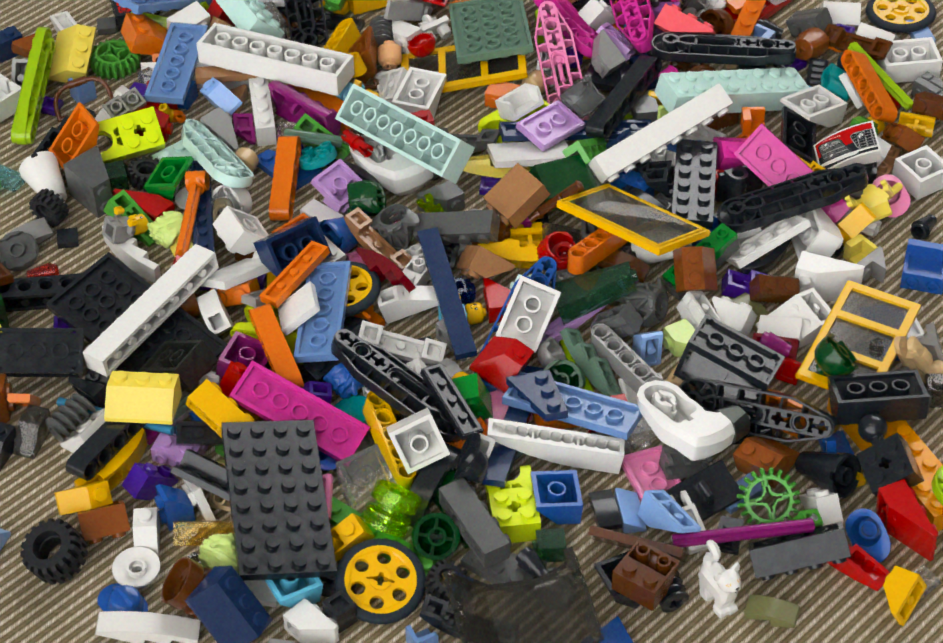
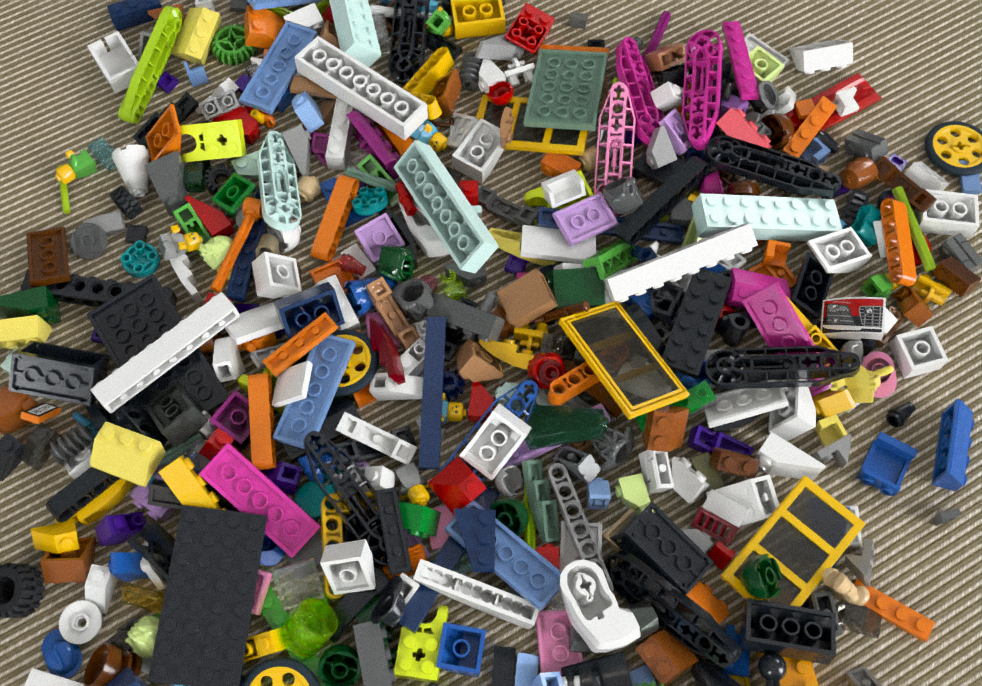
camera: 15 degrees right, 20 degrees up
(44, 270) = (103, 271): clear red cone -> none
(74, 83) = (189, 69): reddish brown piece -> none
(79, 256) = (140, 259): none -> teal tile
(315, 210) = (350, 264): none -> clear red cone
(389, 55) = (470, 95): light nougat head -> none
(440, 67) = (506, 127): none -> medium nougat slope
(775, 343) = (712, 529): magenta cone -> none
(844, 12) = (901, 141): white slope -> none

